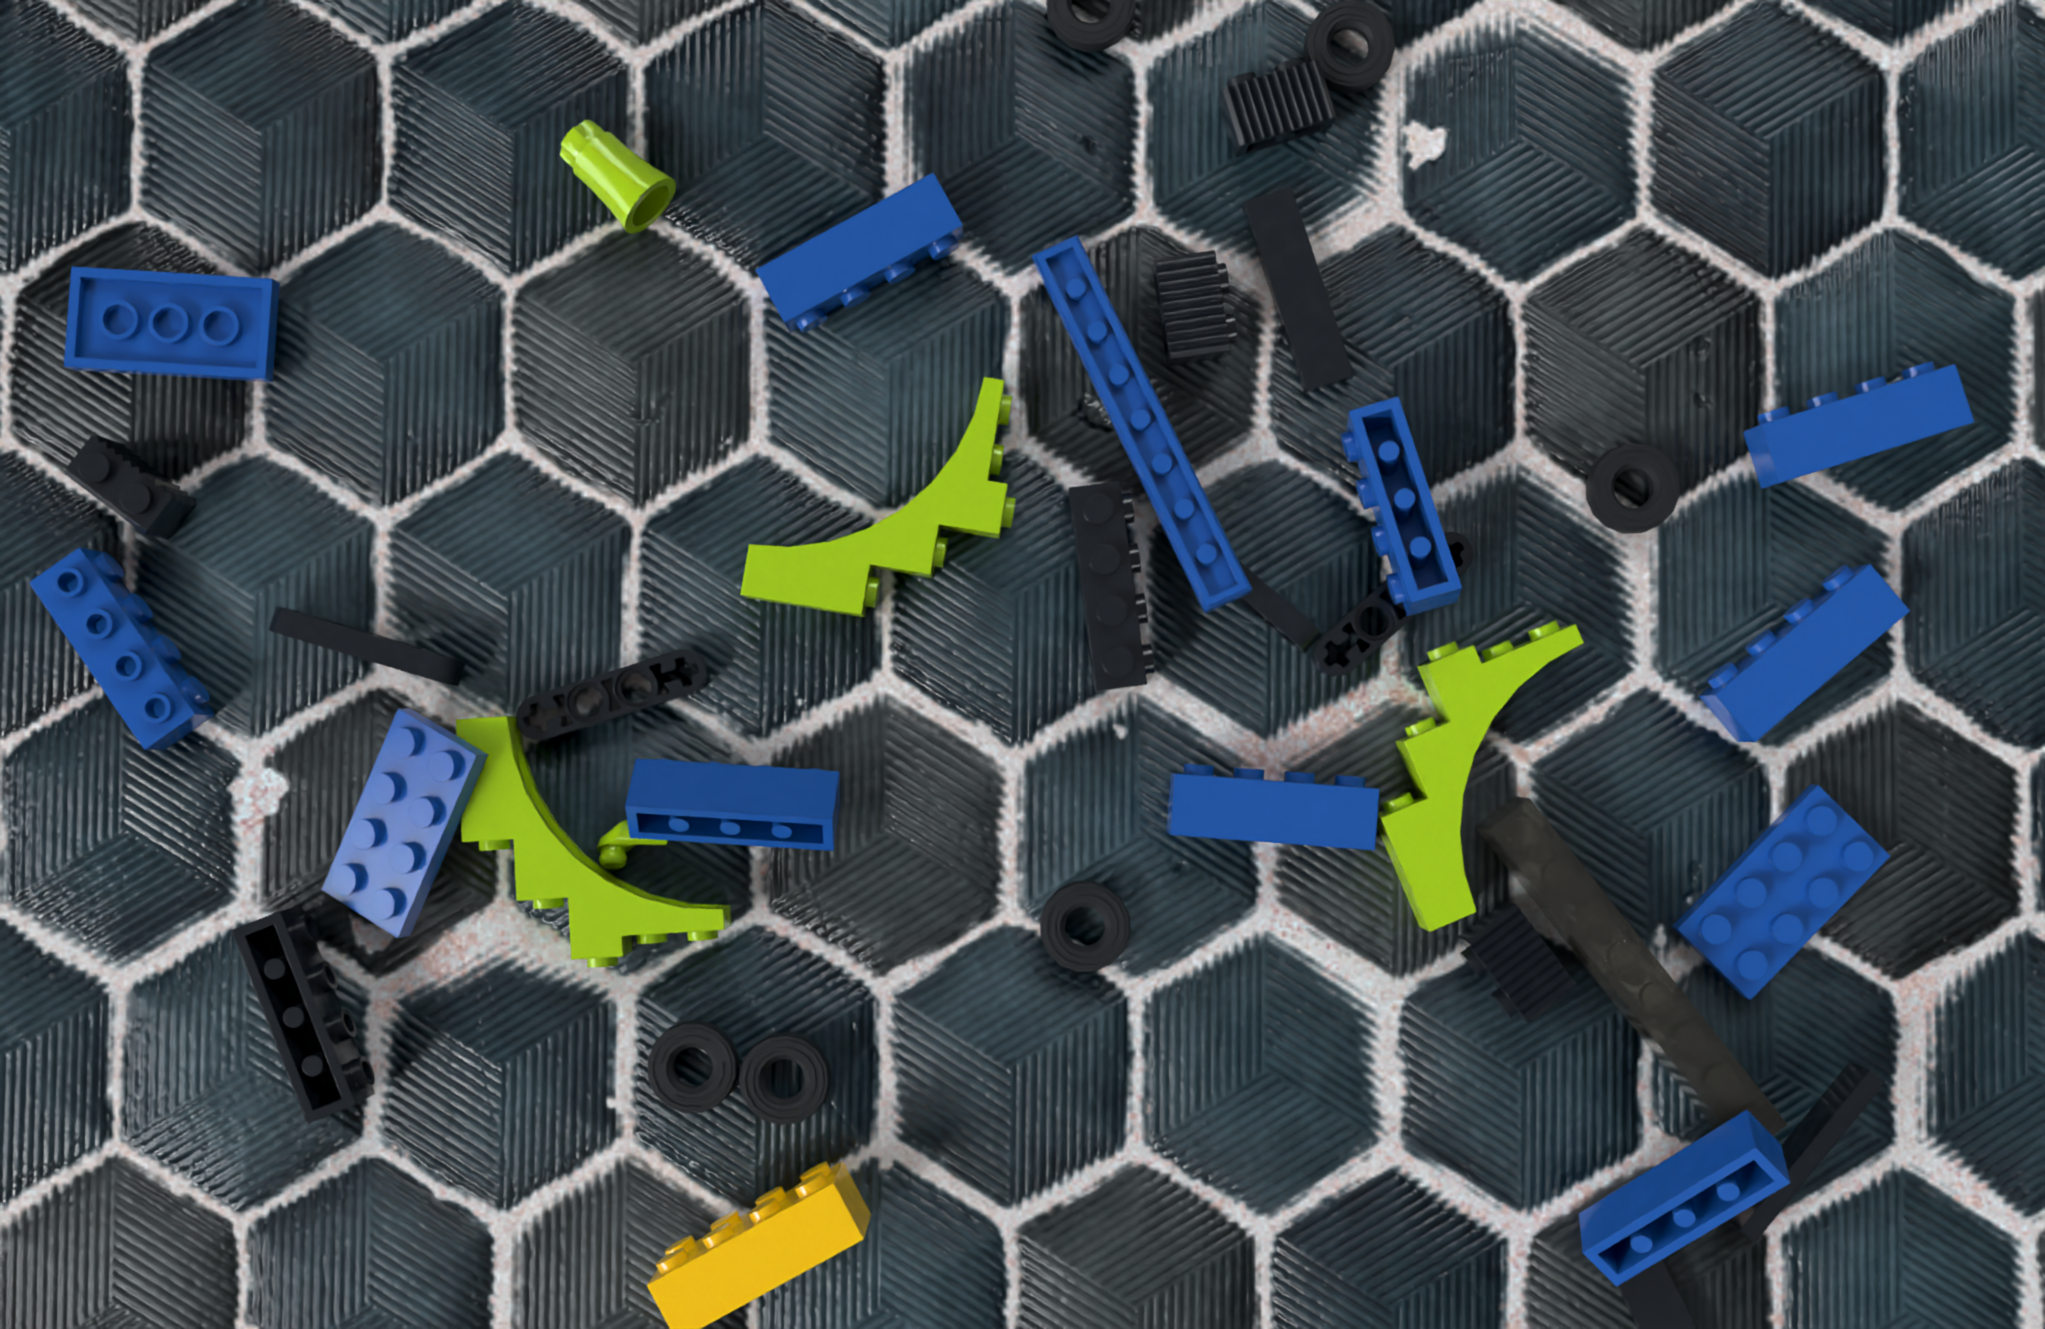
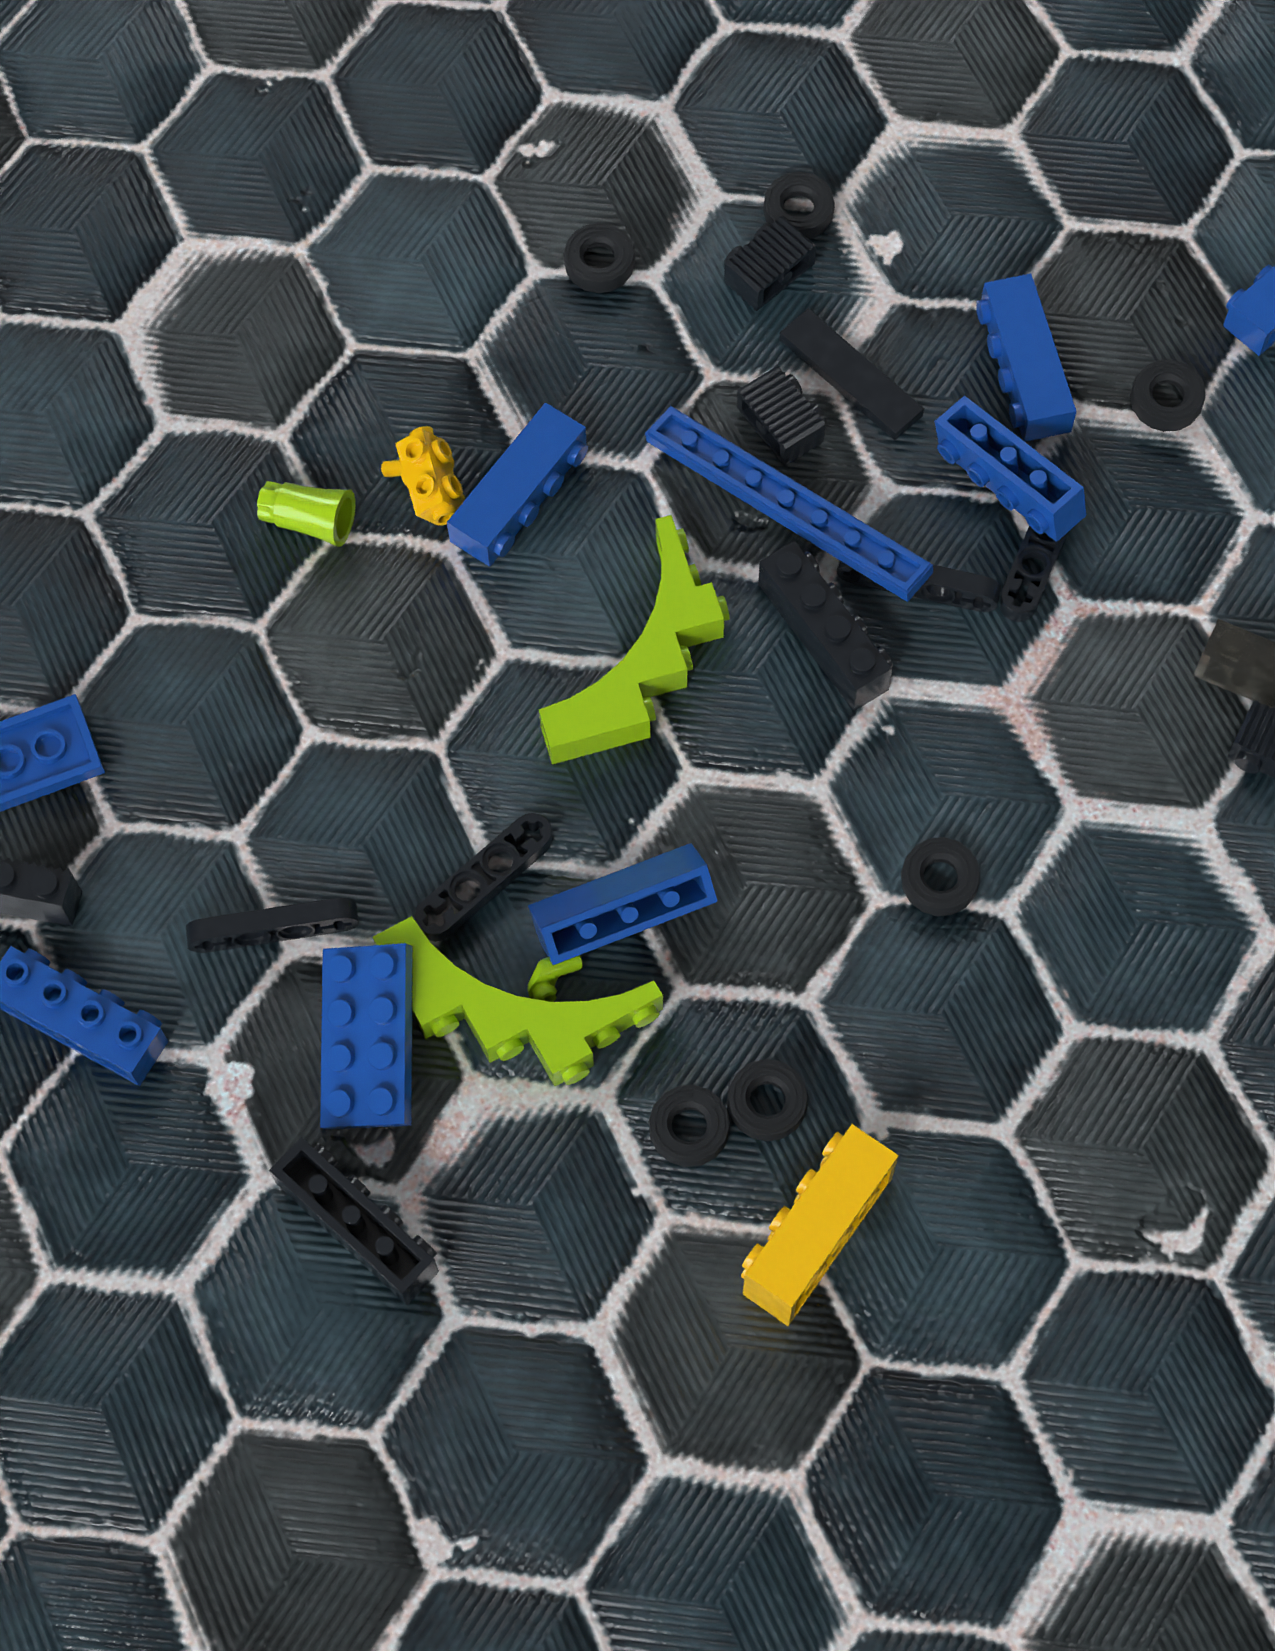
camera: 20 degrees left, 20 degrees down
(766, 198) = (428, 473): none -> yellow brick
(1273, 810) = (1034, 724): blue brick -> none
(1467, 695) = (1153, 683): lime arch -> none
(1499, 371) = (1026, 358): none -> blue brick

